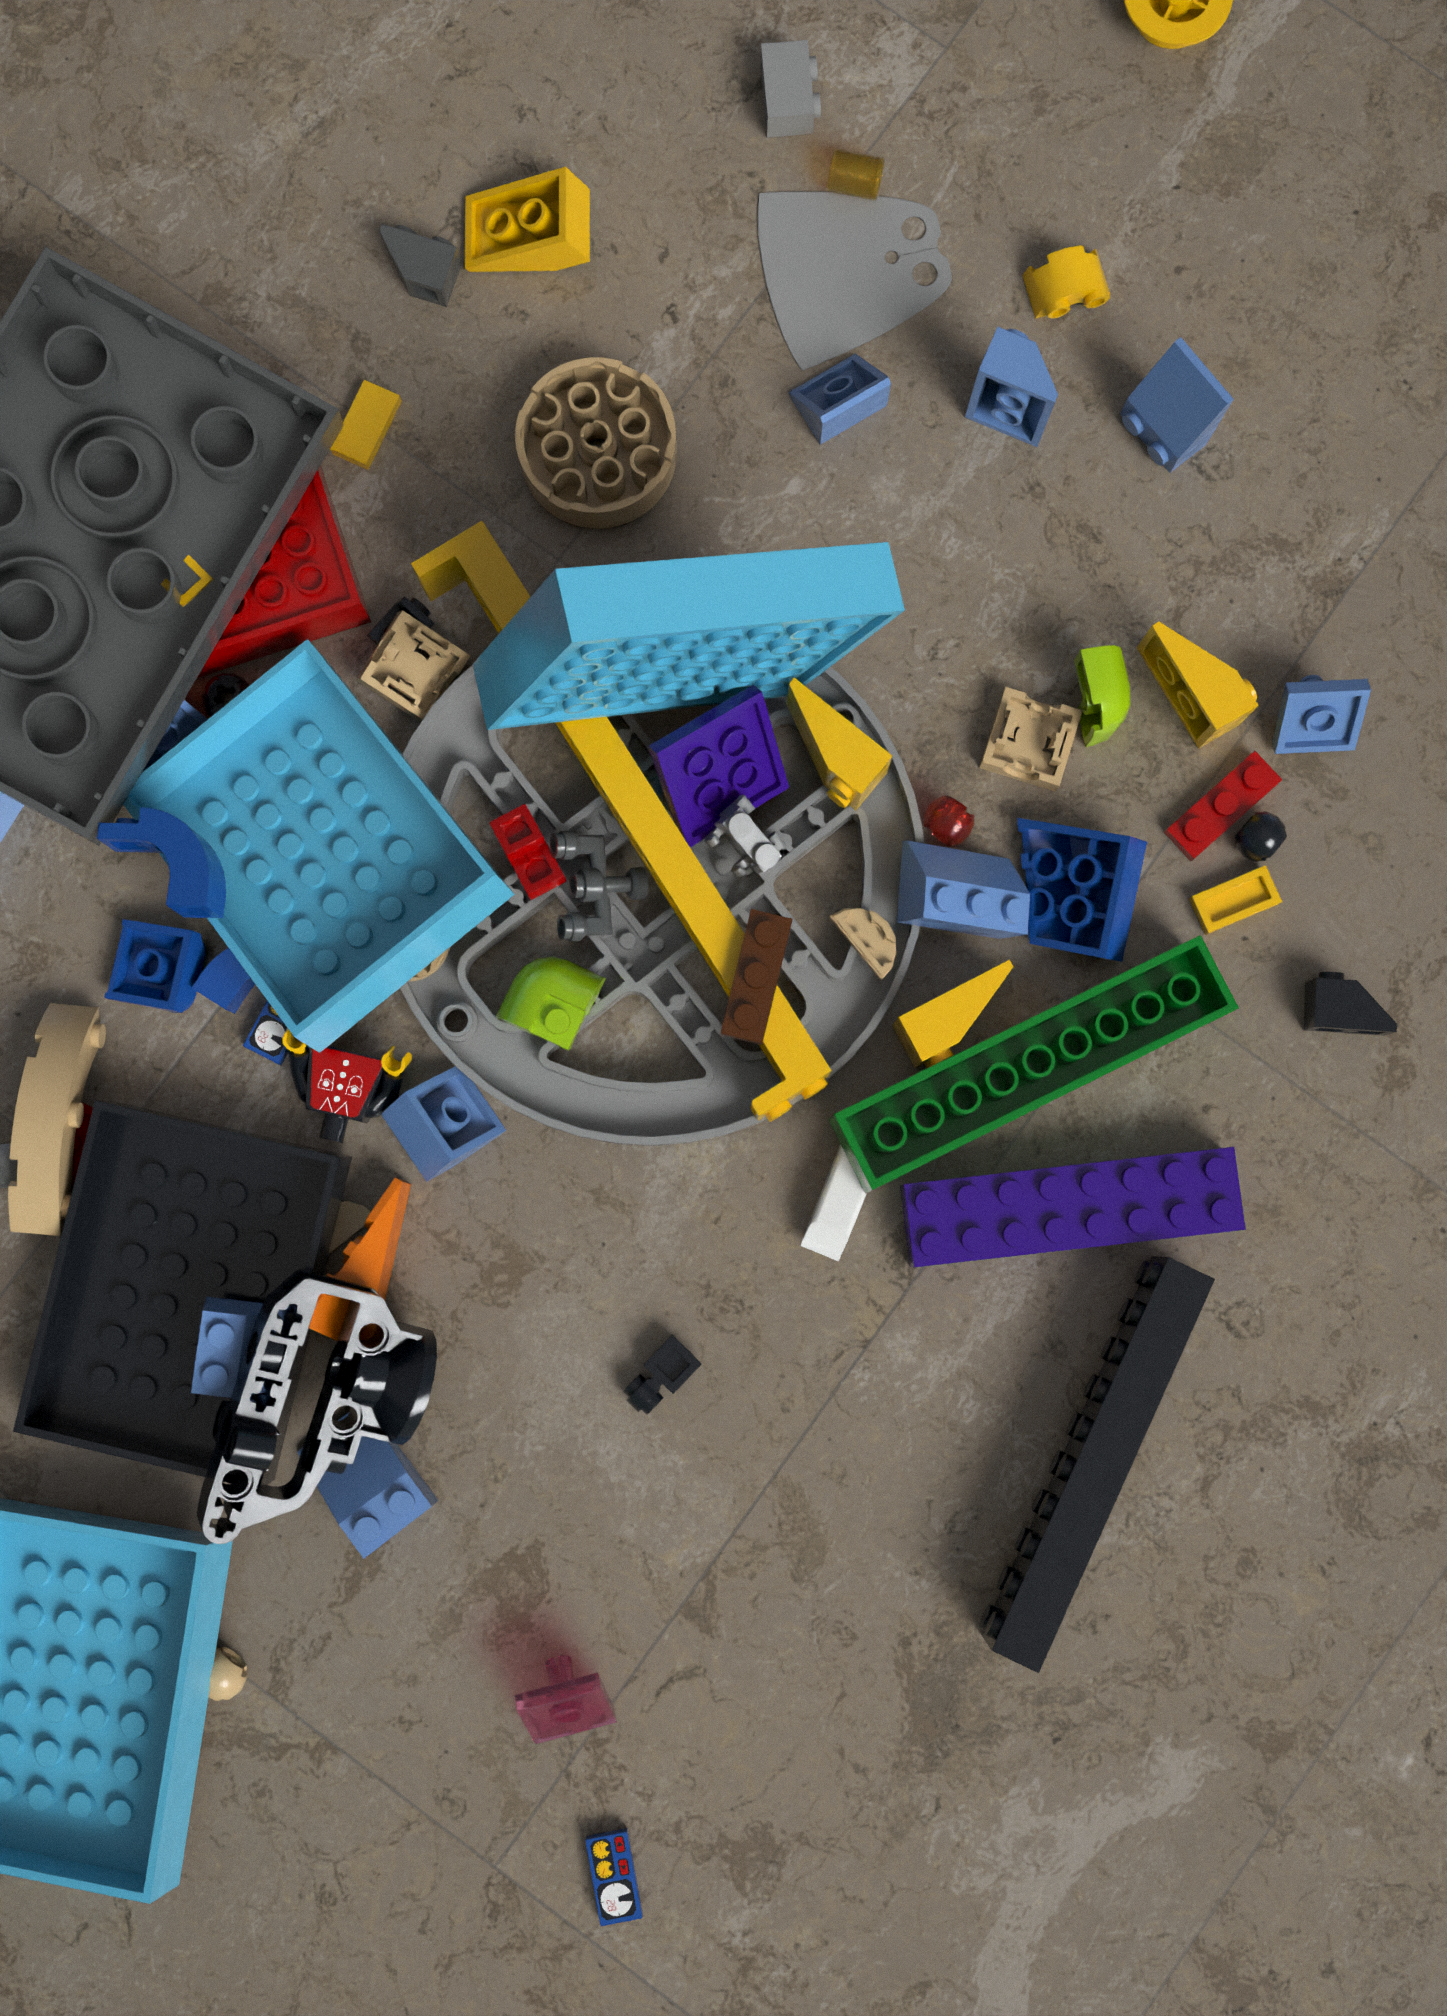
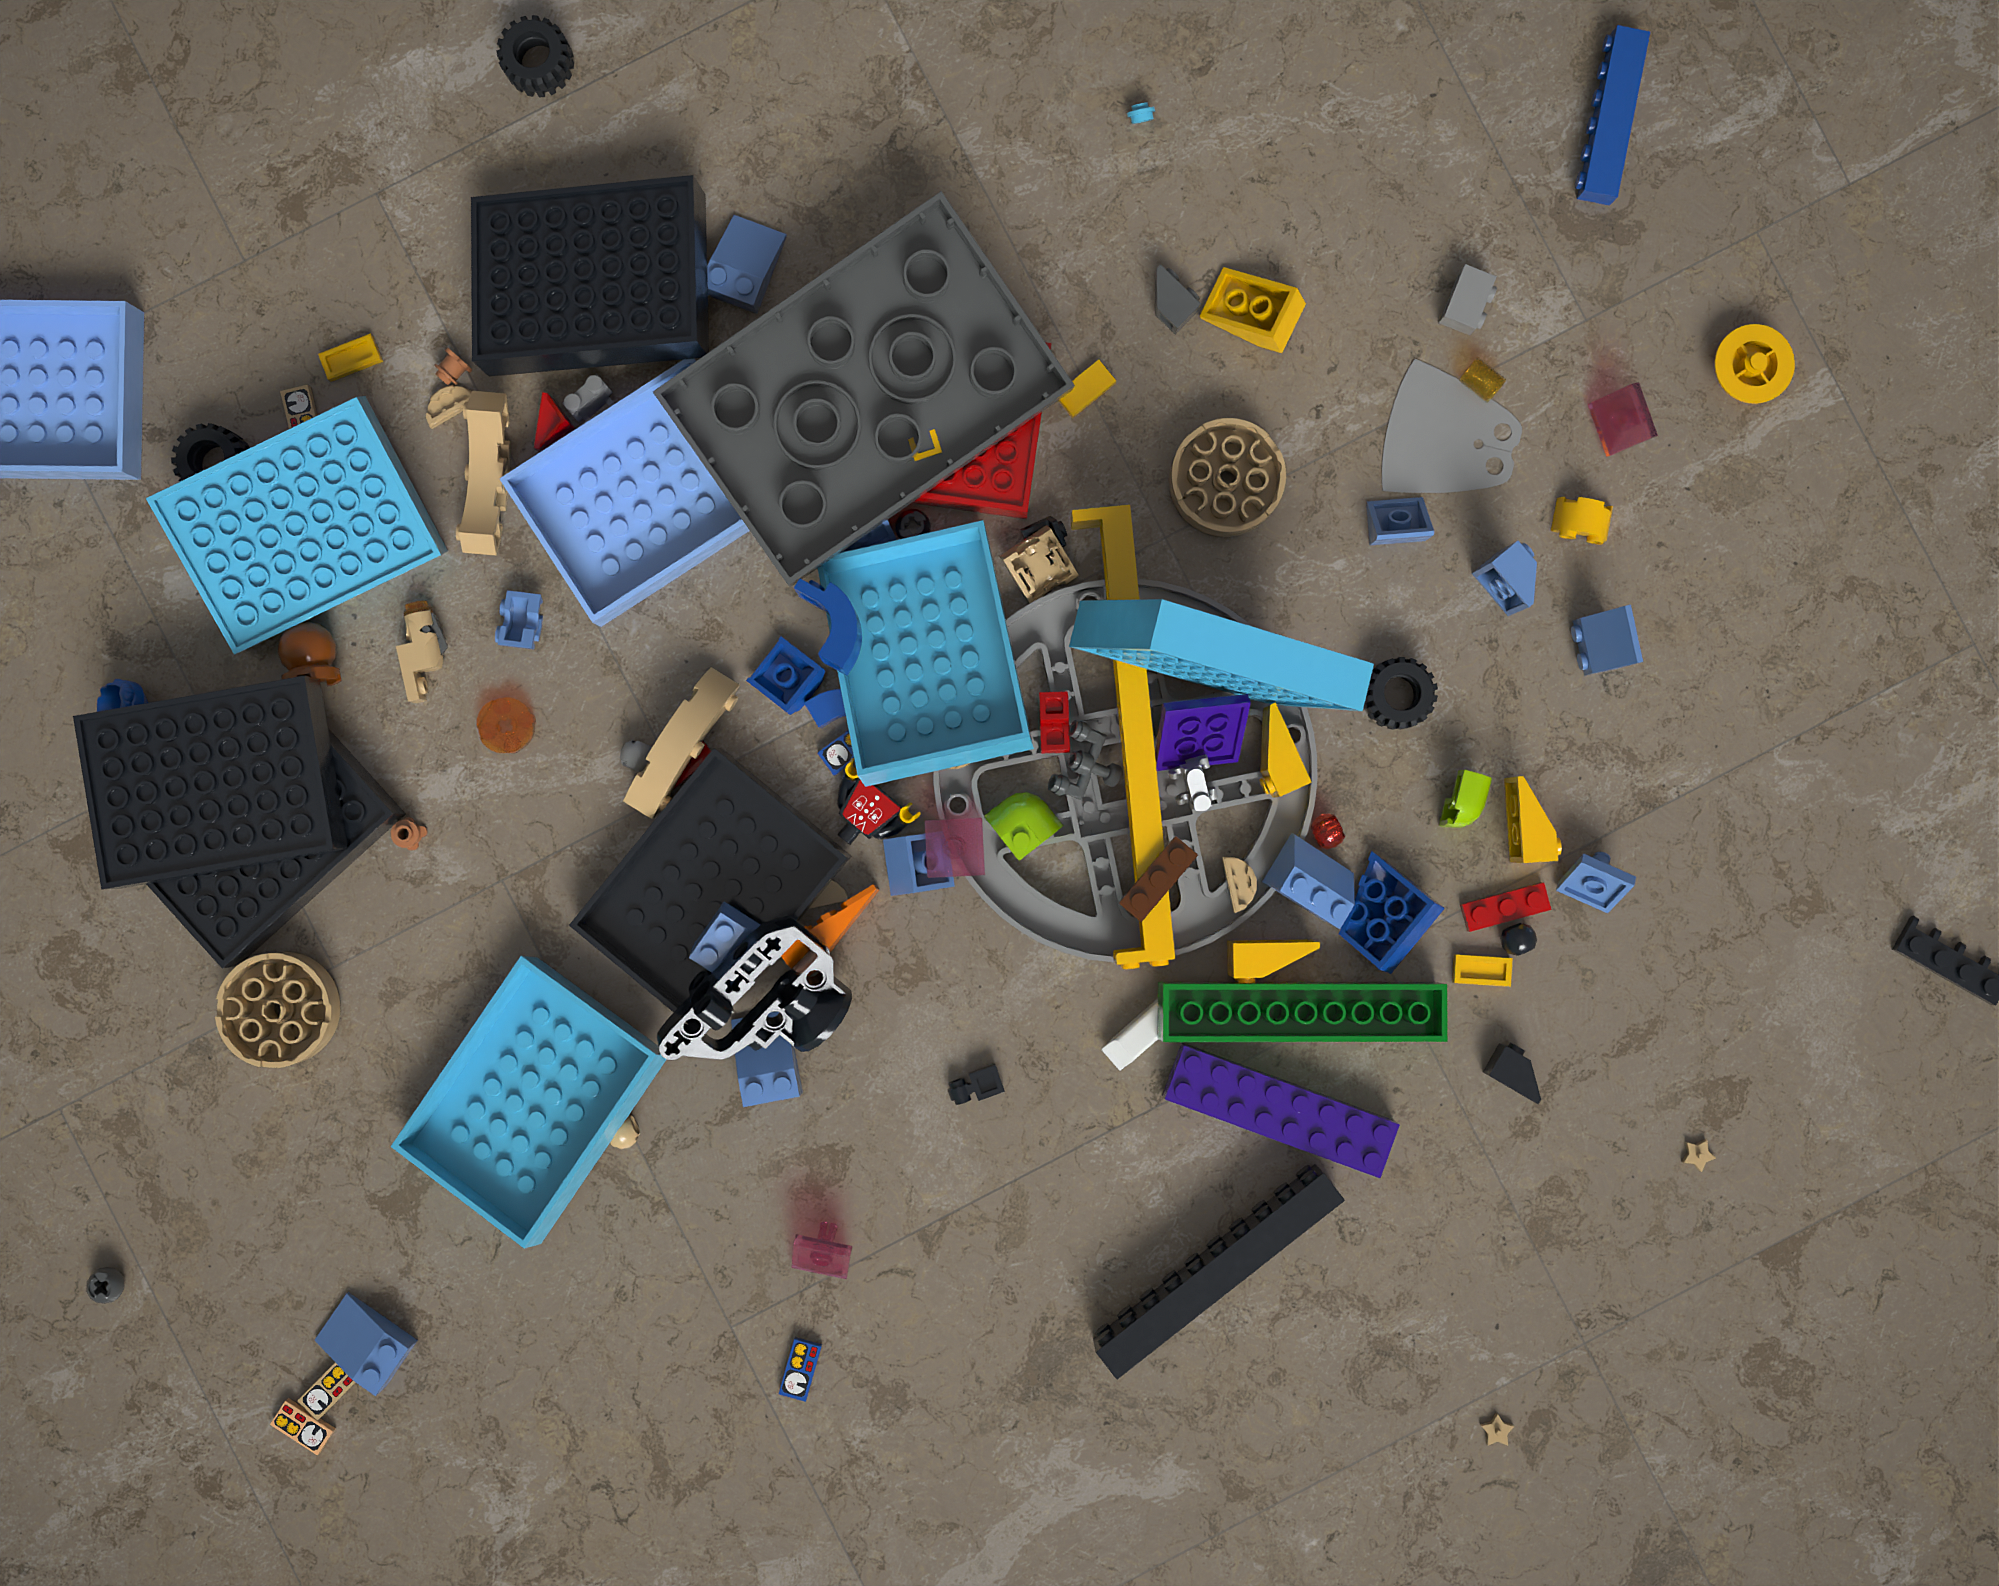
camera: 30 degrees right, 5 degrees up
(269, 60) = (1141, 113): none -> medium azure plate
(477, 1076) = (954, 847): none -> clear pink tile
(954, 572) = (1422, 688): none -> black tyre
(1035, 723) = (1396, 812): tan brick -> none
(1052, 135) = (1622, 419): none -> clear pink tile

